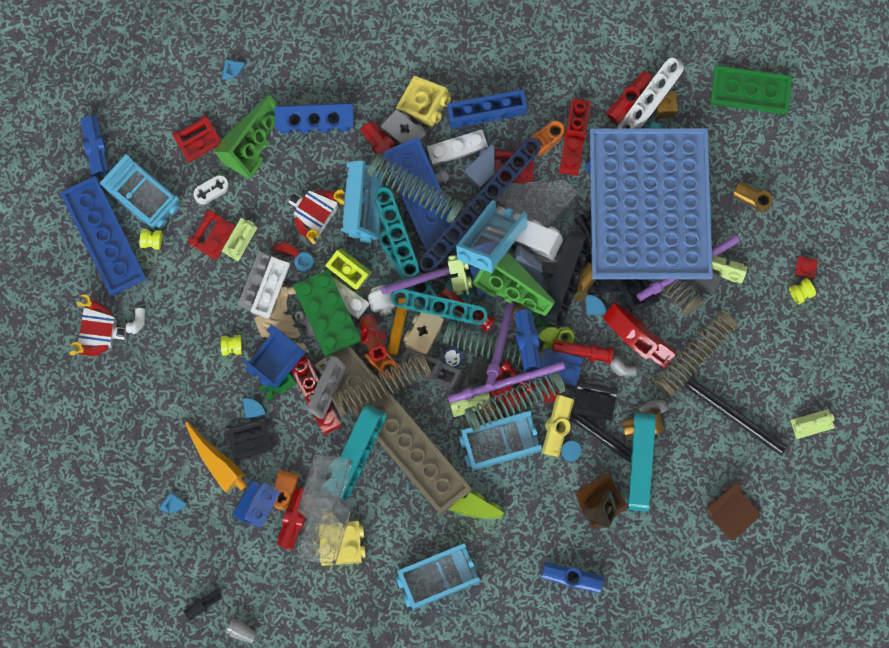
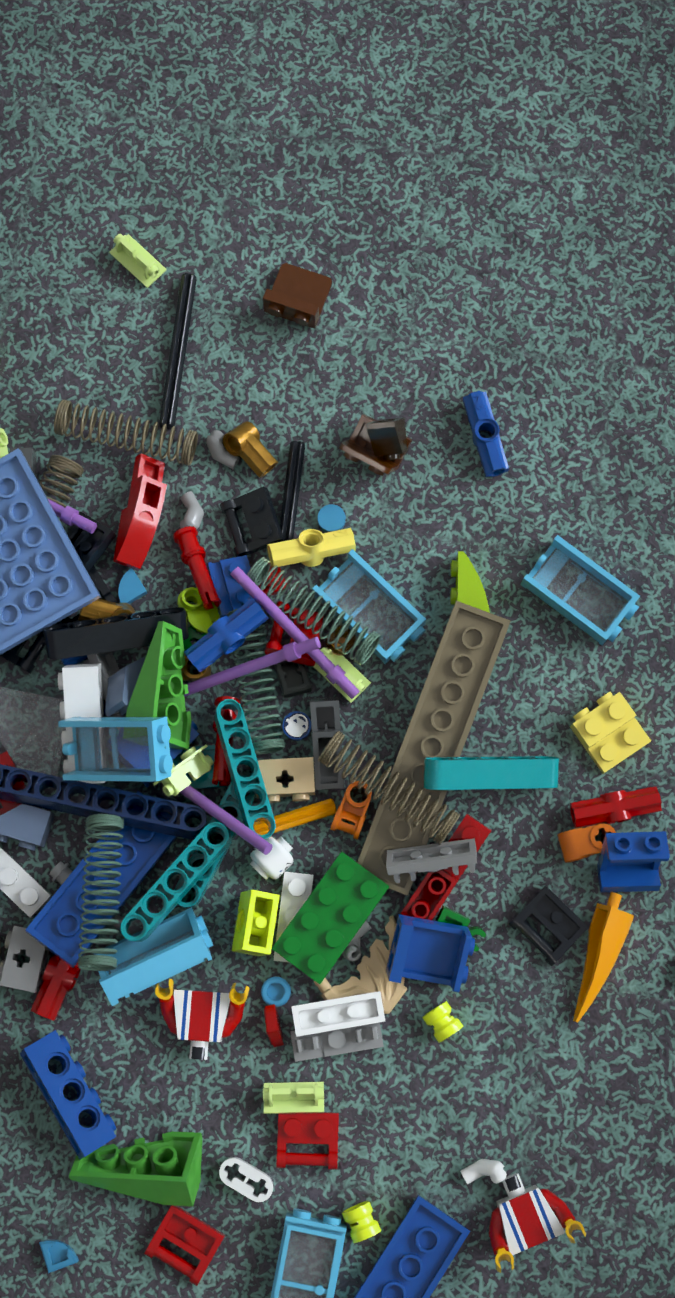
camera: 120 degrees left, 0 degrees up
(253, 409) = (507, 944): dark azure tile -> none
(324, 509) = (586, 771): clear bracket -> none
(373, 337) = (332, 834): red piece -> none
(641, 462) = (298, 423): teal beam -> none

